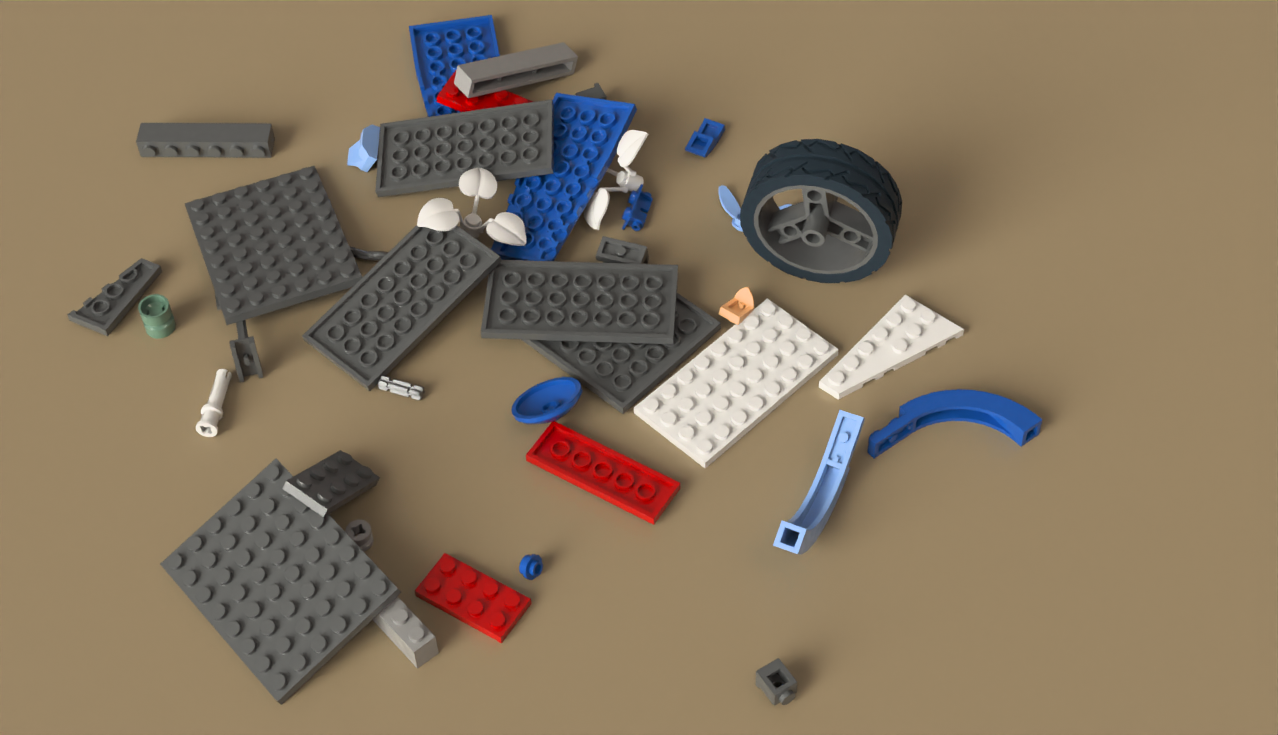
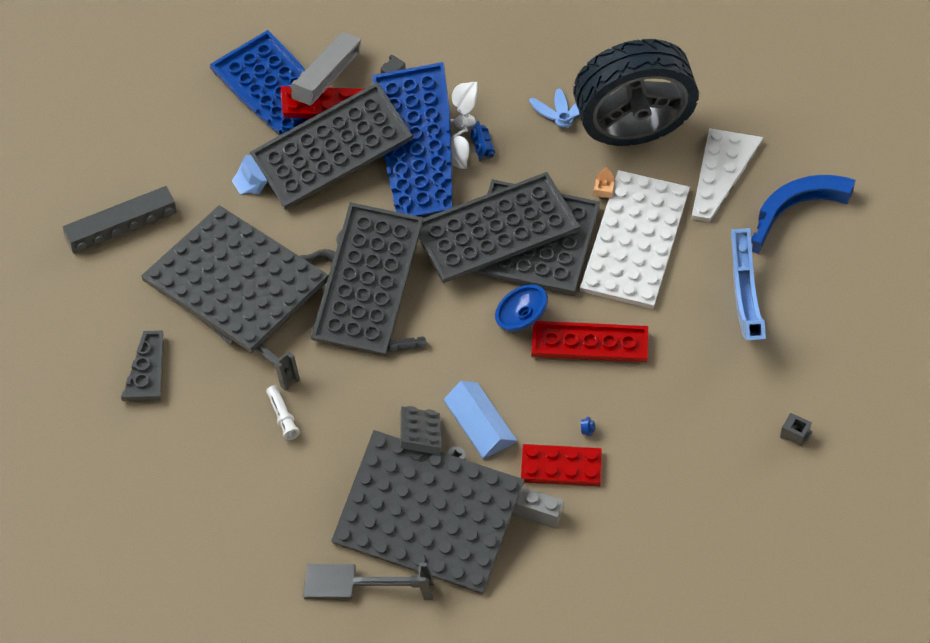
camera: 30 degrees left, 5 degrees up
(132, 609) = (338, 580): none -> piece
(157, 316) = (192, 369): sand green wheel -> none
(420, 503) = (479, 418): none -> light blue slope
(477, 182) = (363, 206): white plant -> none
(620, 251) = (498, 178): dark grey panel -> none
(706, 138) = (493, 66): blue slope -> none

